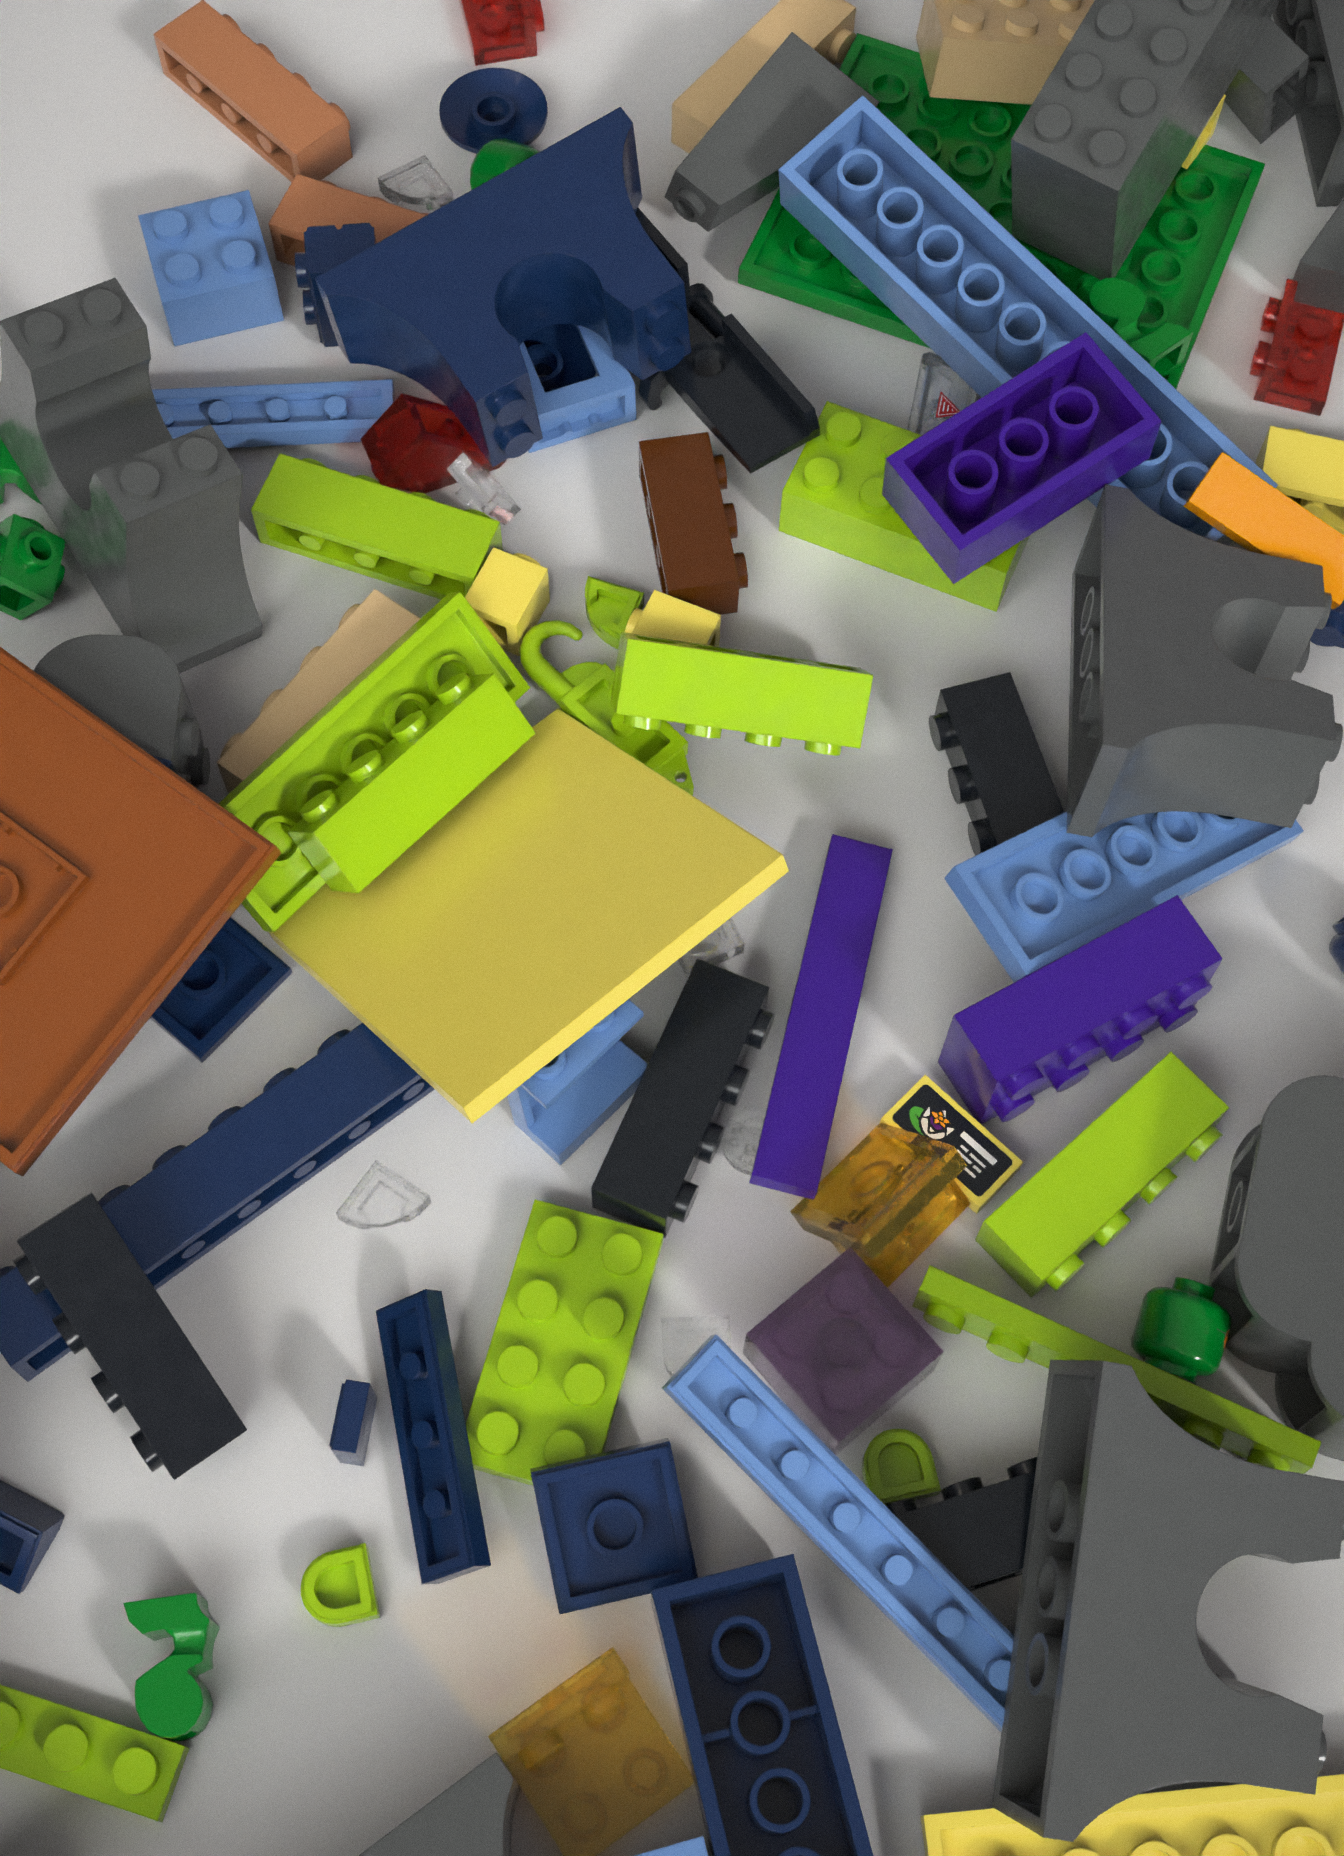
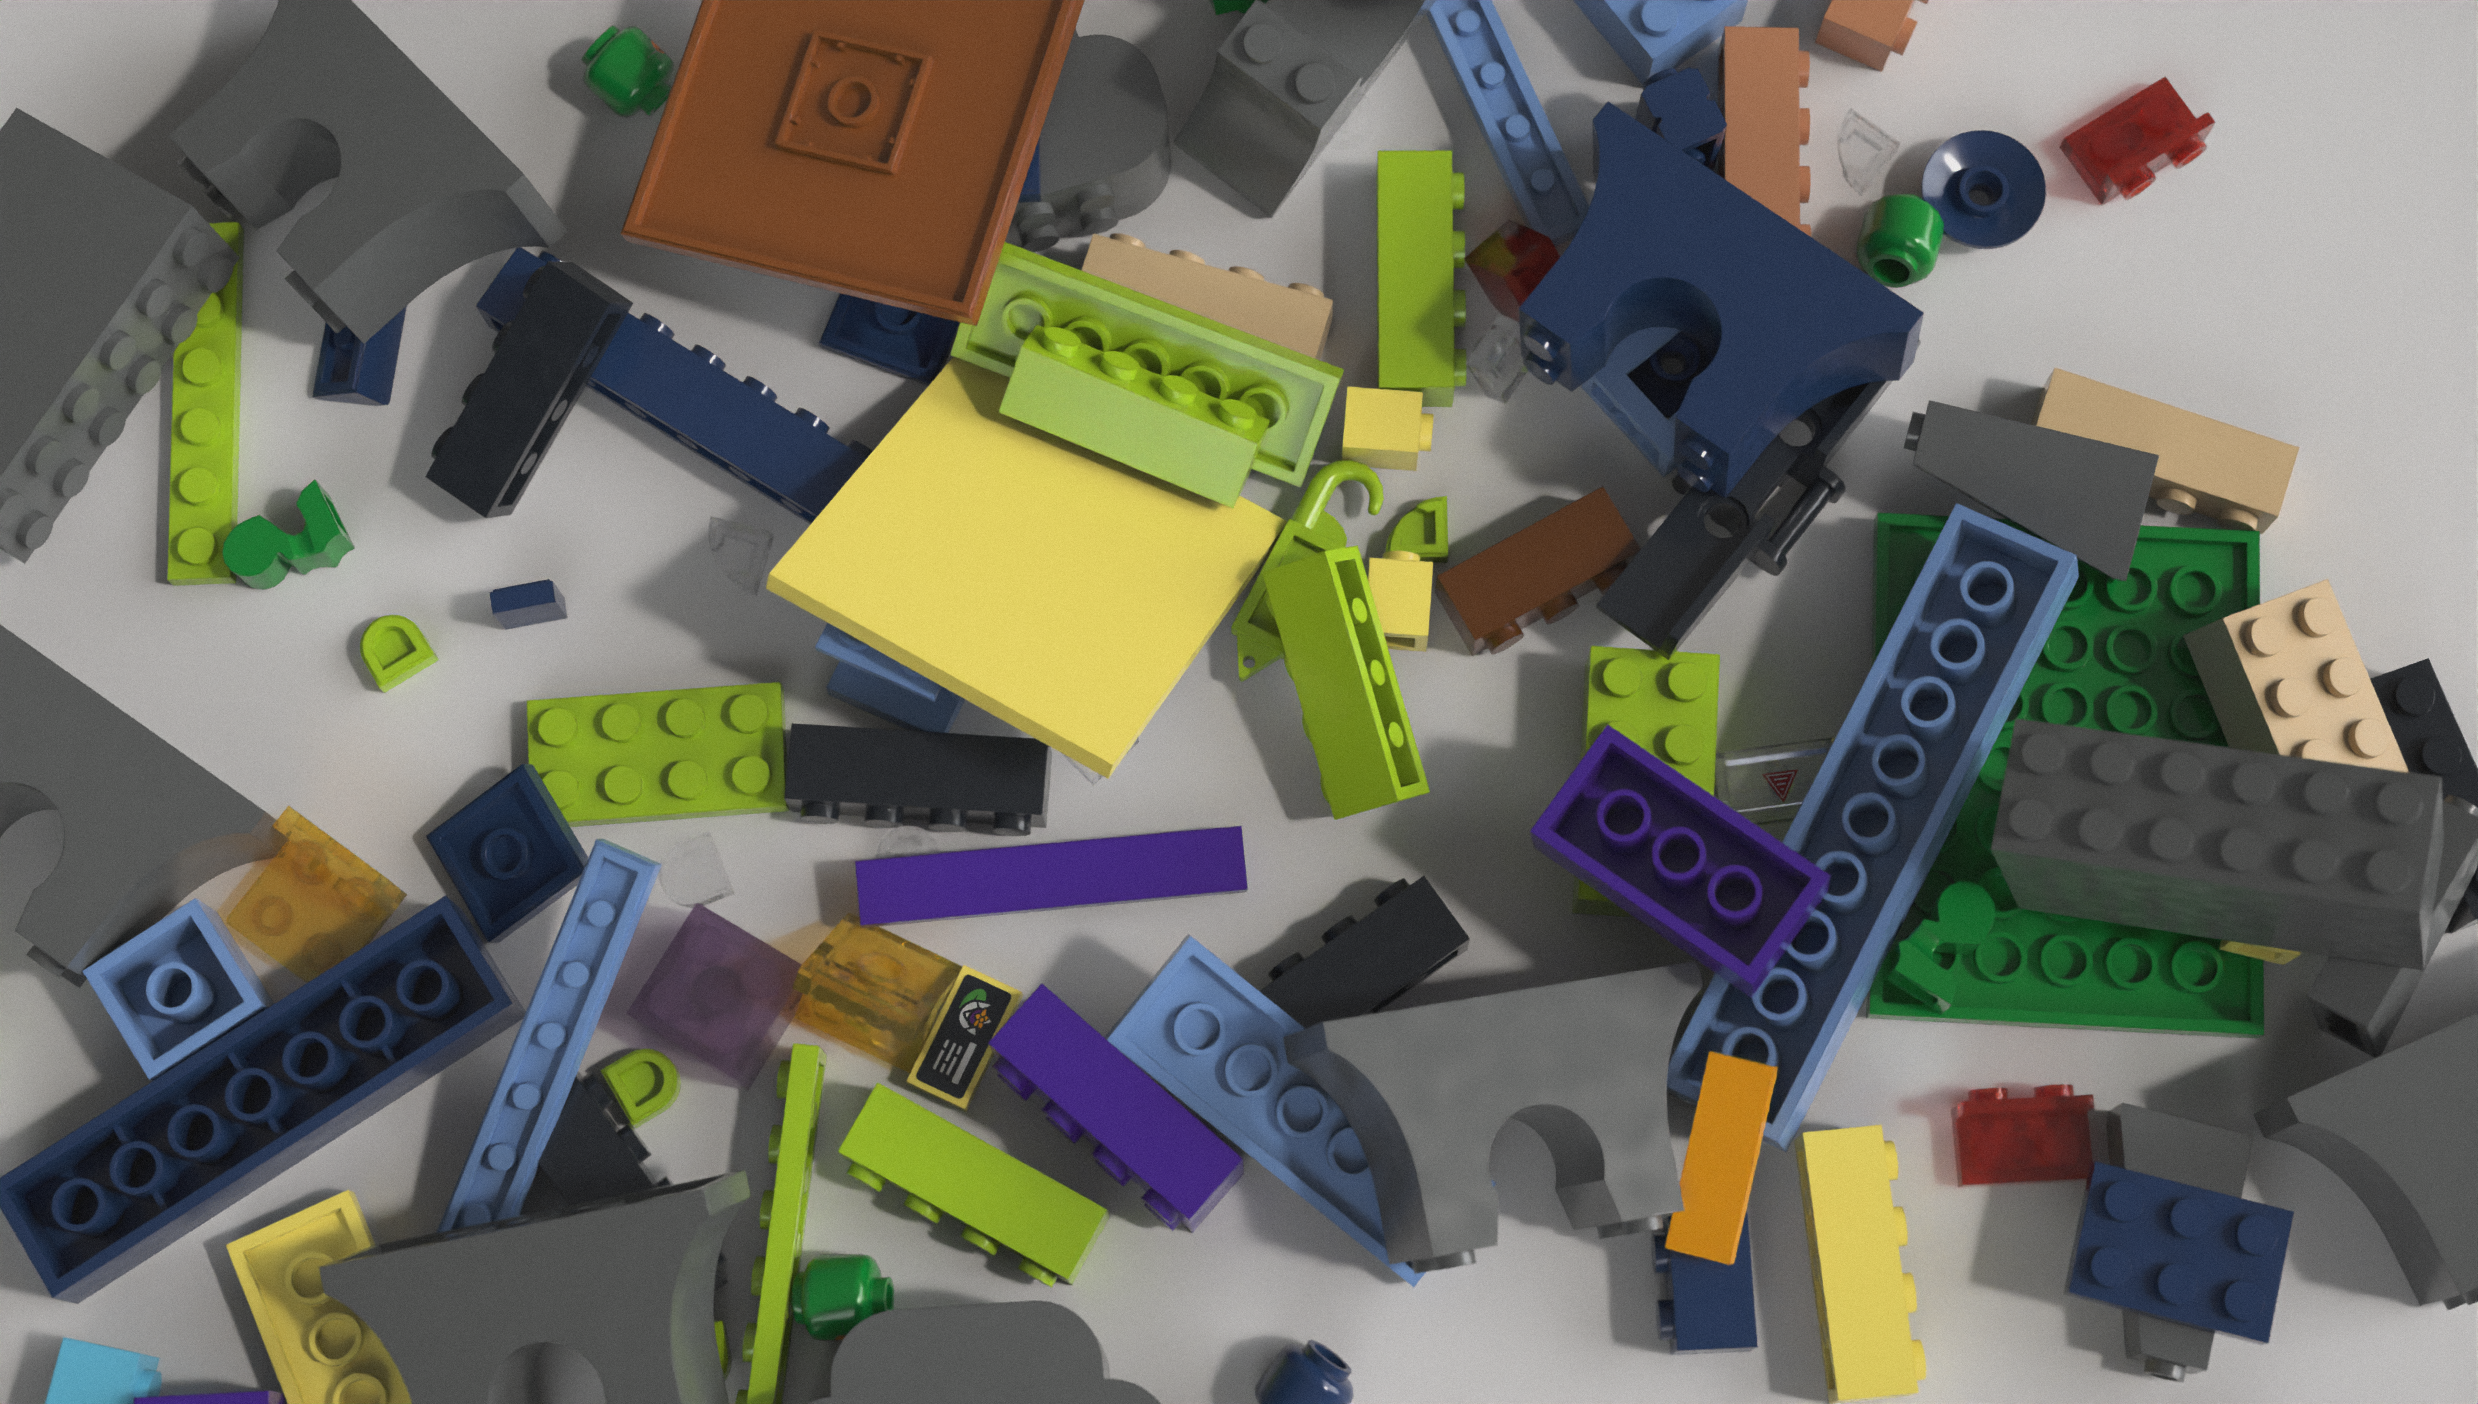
camera: 75 degrees right, 10 degrees up
(432, 1438) = (539, 673): dark blue tile -> none

